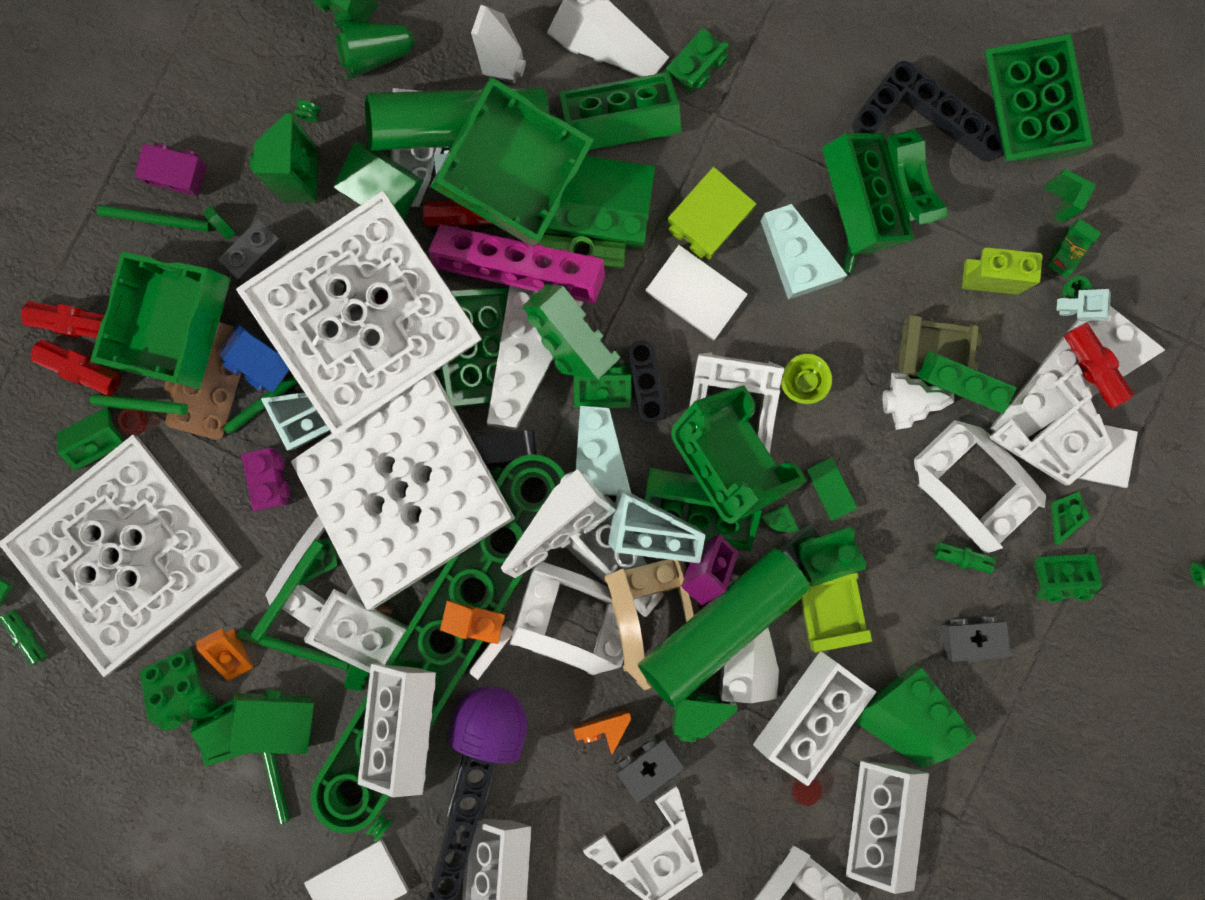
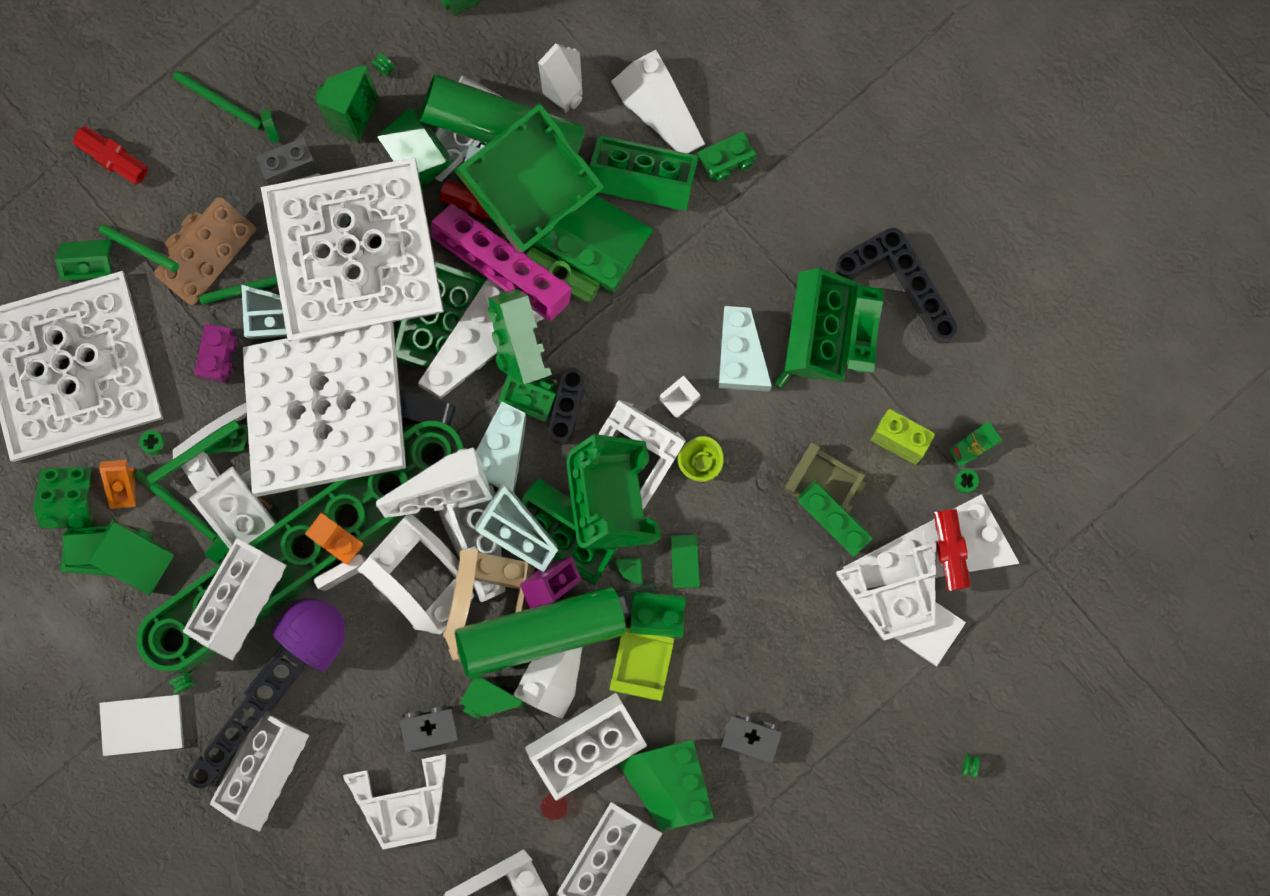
camera: 20 degrees right, 5 degrees down
(75, 367) = (99, 196): red piece -> none
(132, 421) = (126, 260): clear red plate -> none
(161, 319) = (188, 186): green tile -> none
(170, 169) = (249, 66): magenta brick -> none
(232, 593) = (145, 437): none -> green bush
(254, 357) = (250, 248): blue piece -> none
(276, 787) = (111, 612): green bar -> none
(370, 45) = (459, 33): green cone -> none
(612, 725) = (413, 681): orange slope -> none
(696, 292) = (642, 349): white tile -> none
(710, 214) = (681, 288): lime panel -> none
(756, 325) = (679, 397): none -> white panel
(913, 400) = (785, 515): white rock -> none
(964, 557) = (773, 666): green pin -> none
(1006, 513) = (823, 645): white wedge -> none
(1039, 99) = (995, 307): green slope -> none
(1067, 516) = (876, 669): green piece -> none
(1067, 577) = (852, 720): green bracket -> none
(1074, 192) = (992, 392): green panel -> none
(1089, 306) = (966, 498): light aqua plate -> none

